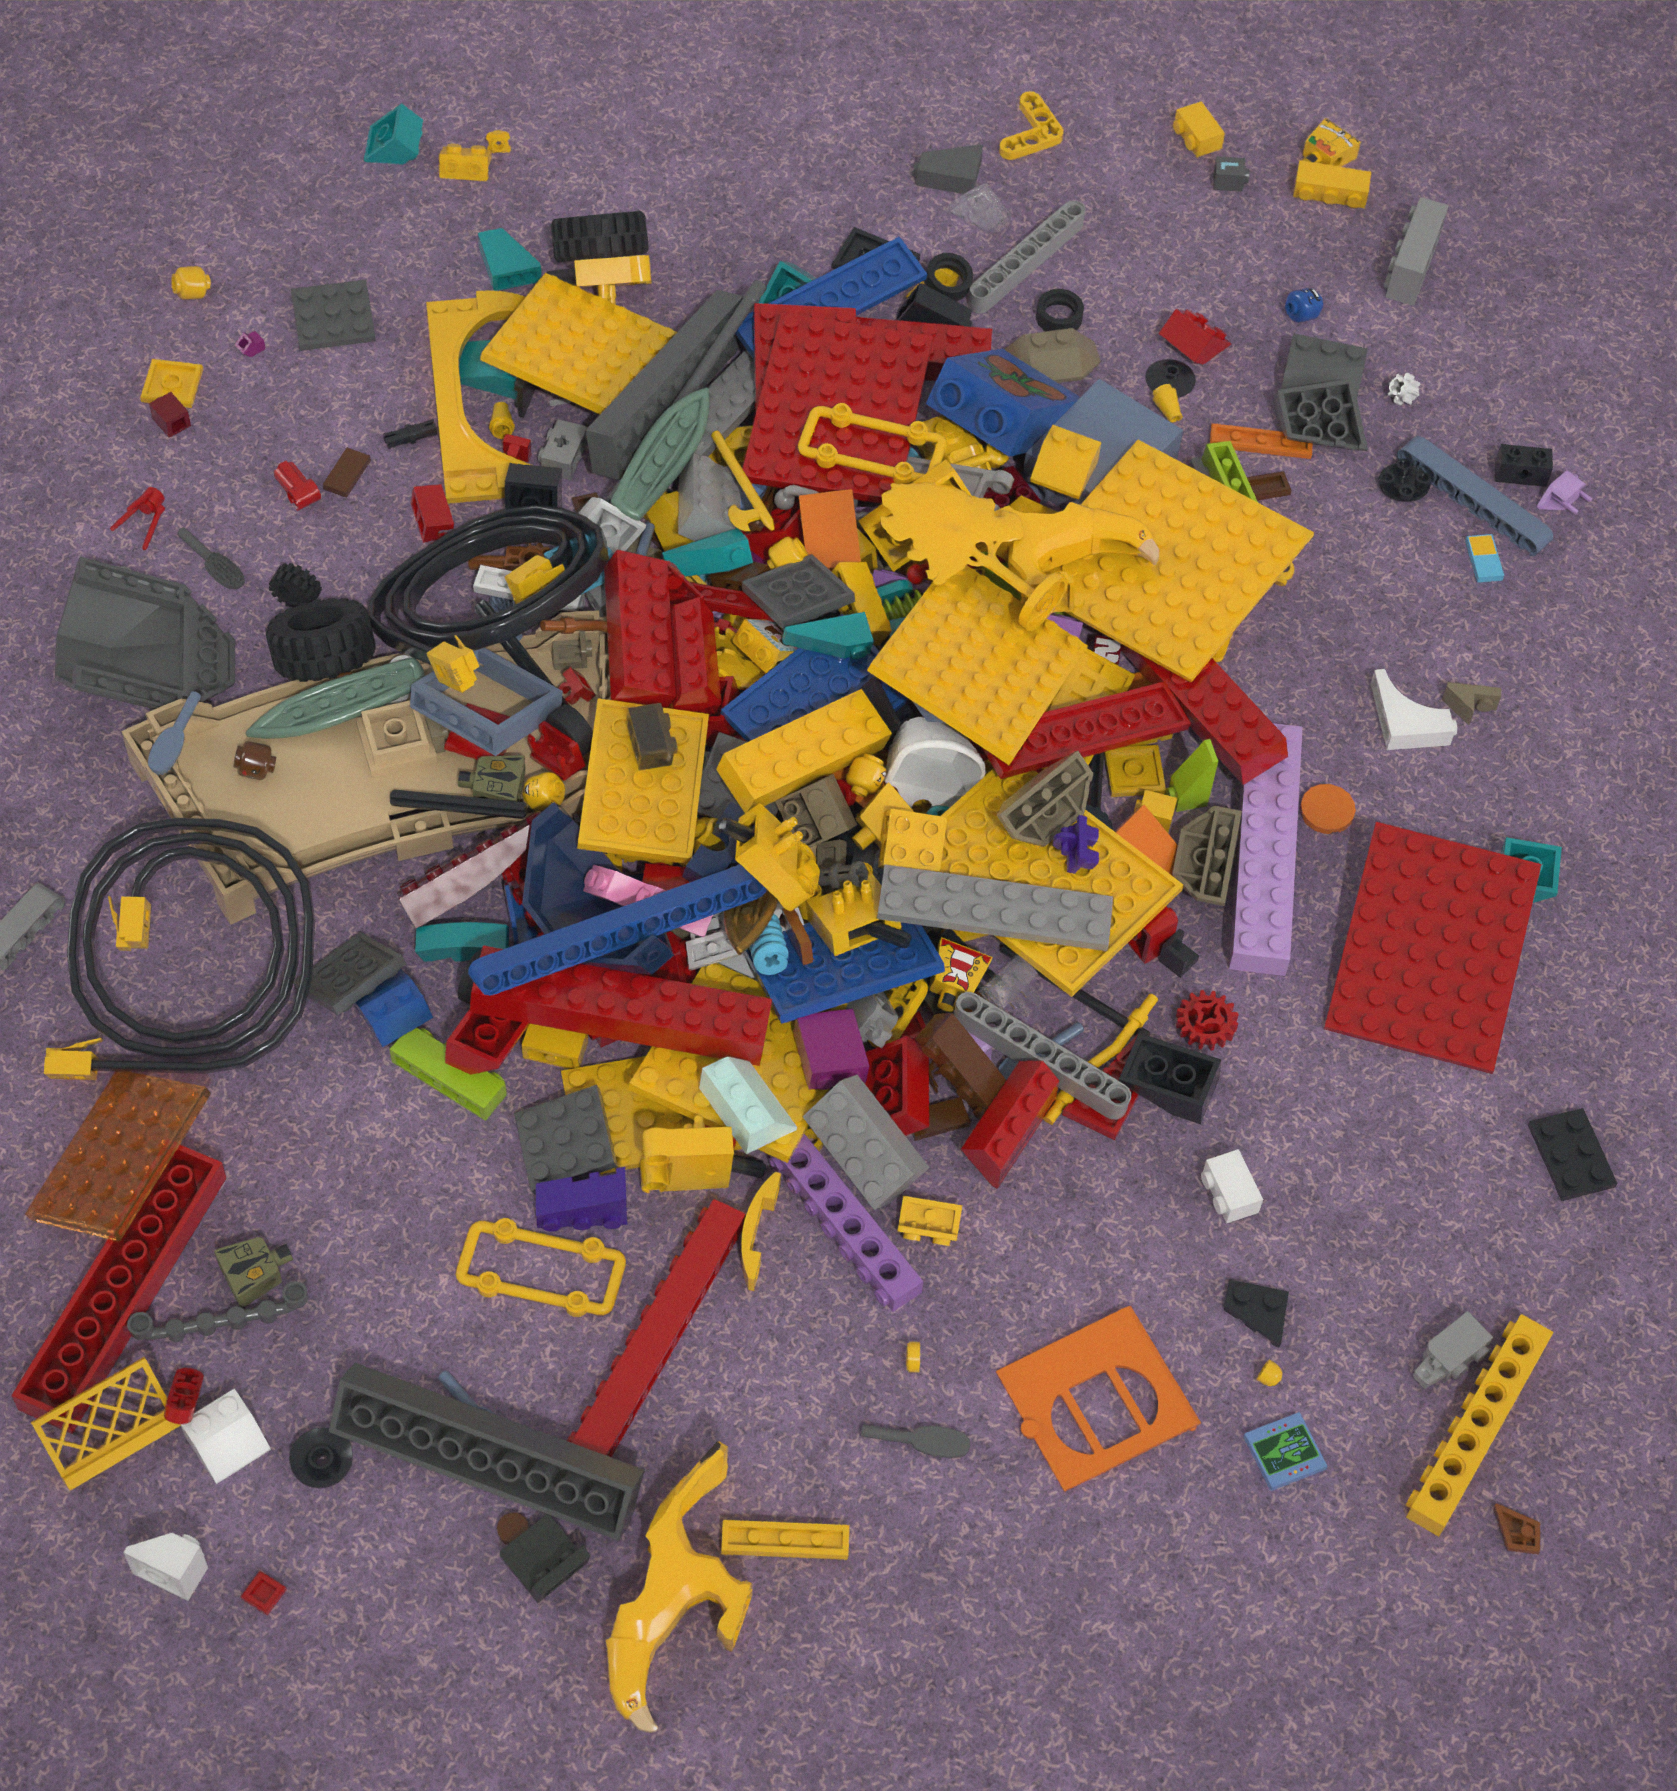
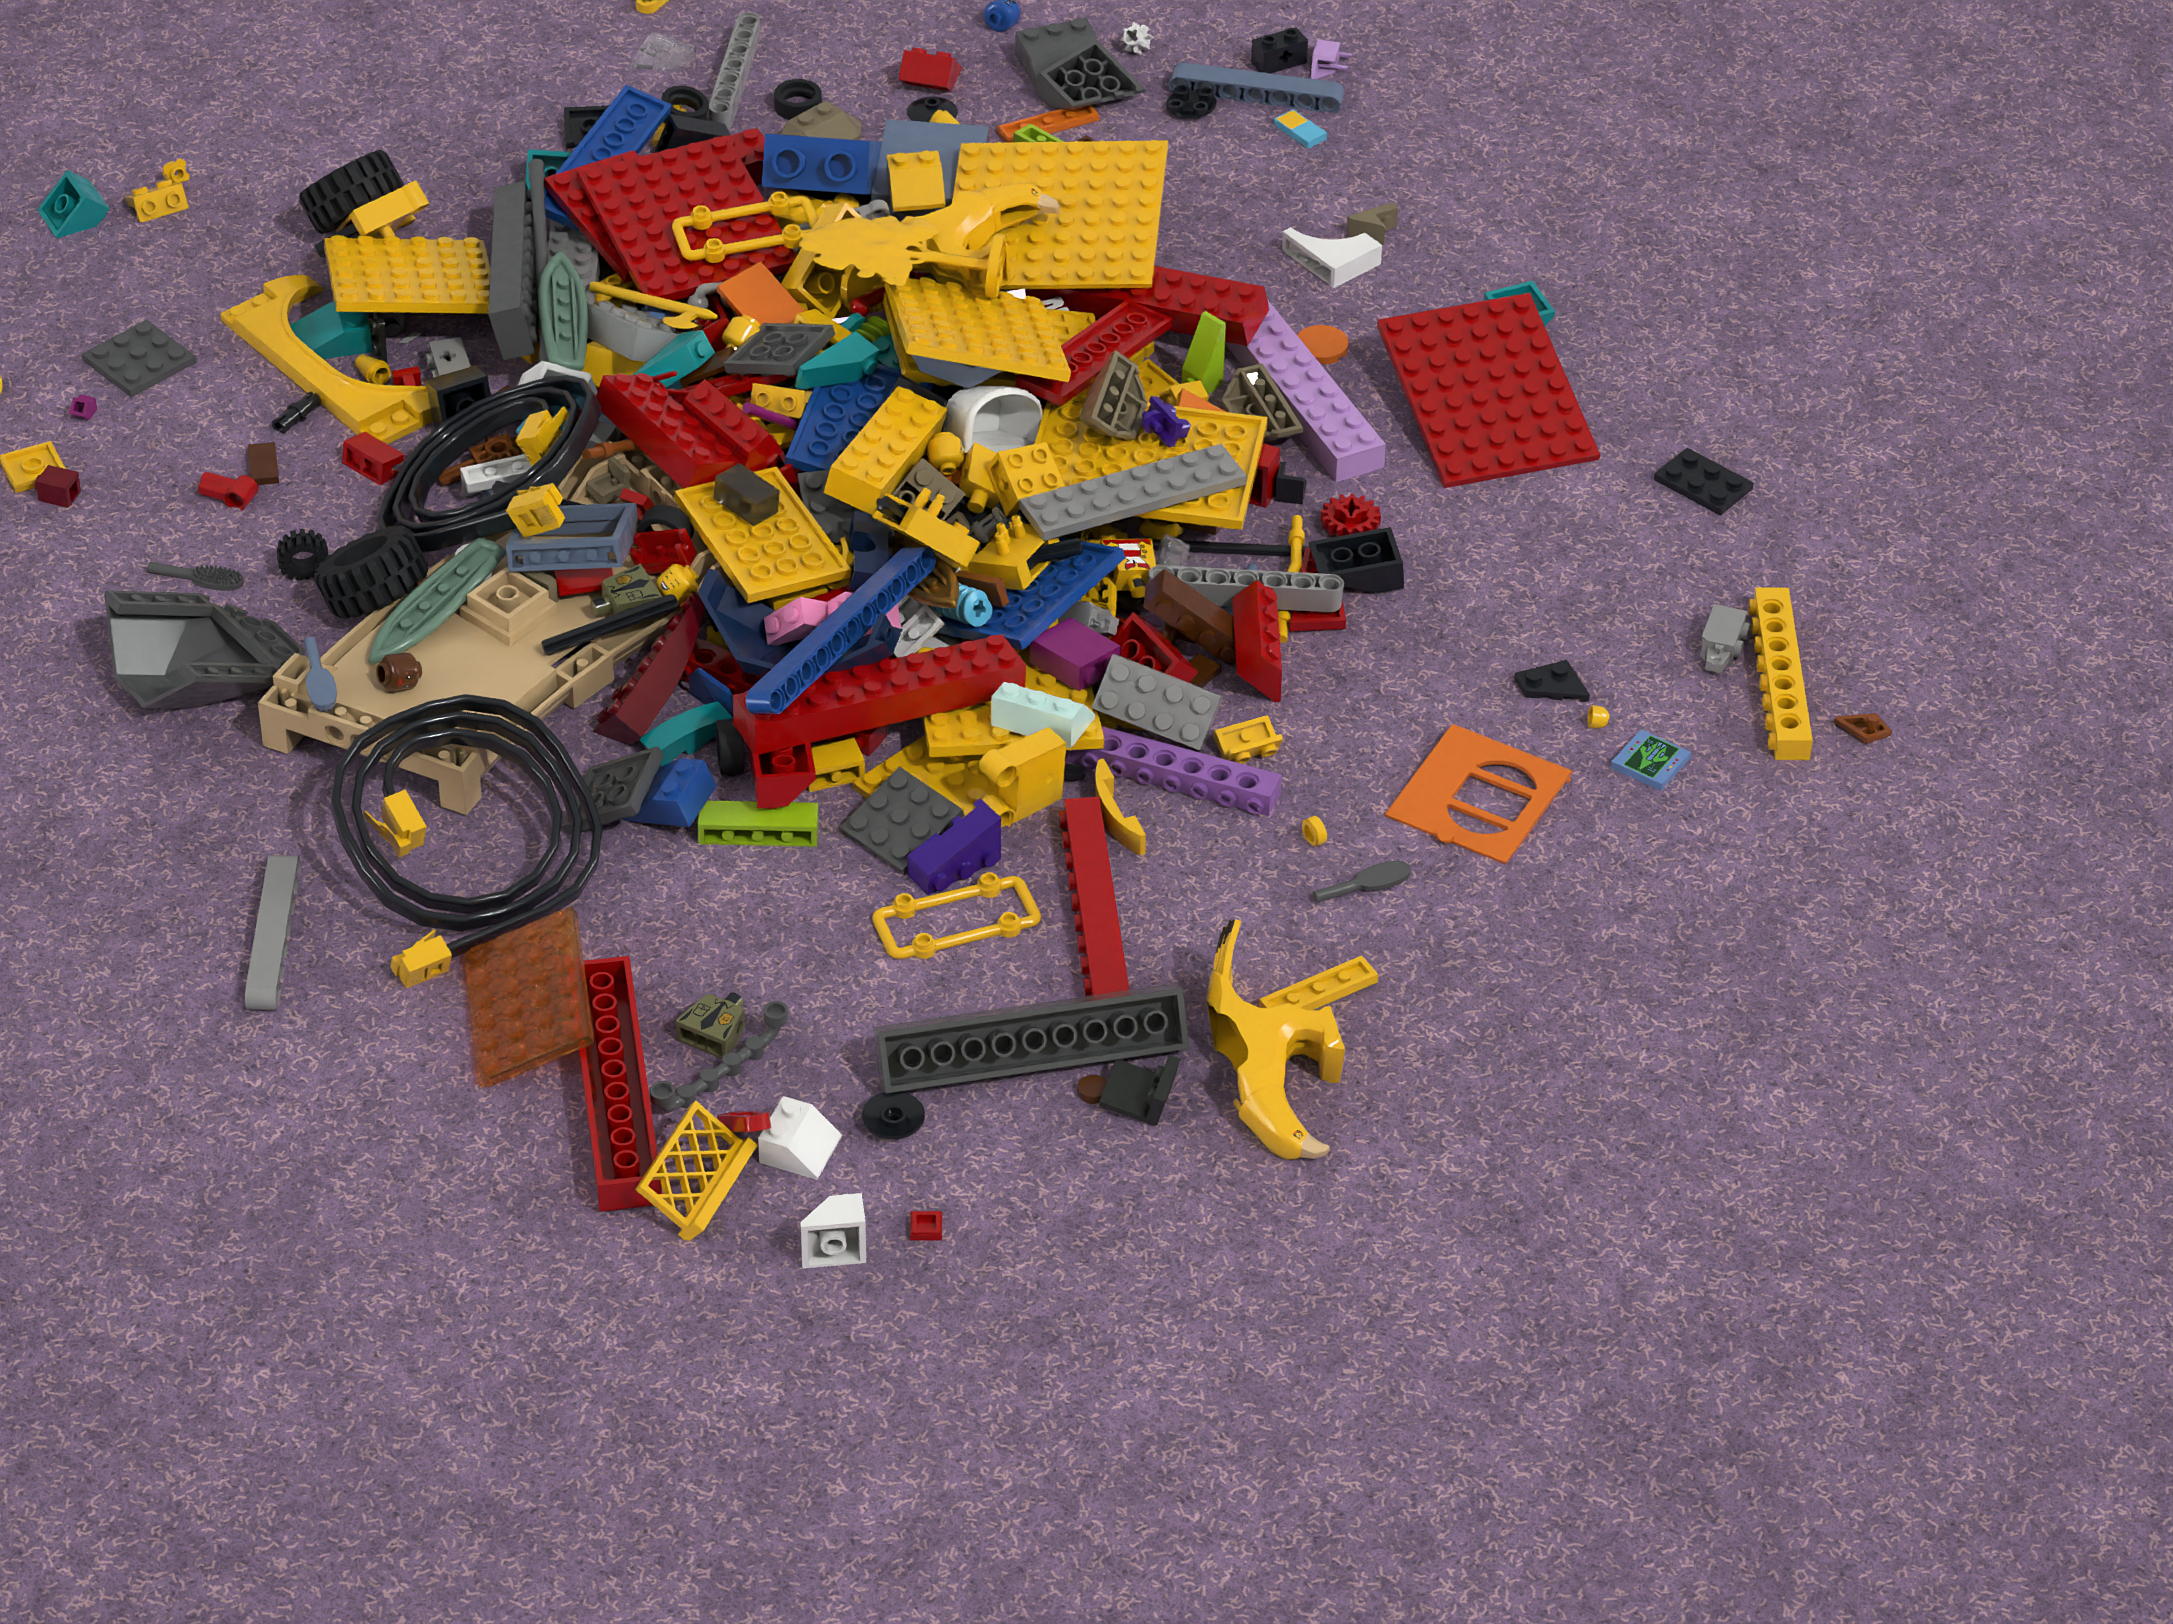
camera: 30 degrees left, 15 degrees down
(148, 503) = (100, 558): red plant -> none
(507, 261) = (267, 253): teal slope -> none
(733, 660) = (770, 416): none -> magenta bar
(949, 168) = (609, 36): dark grey slope -> none
(1231, 1186) = (1466, 610): white brick -> none

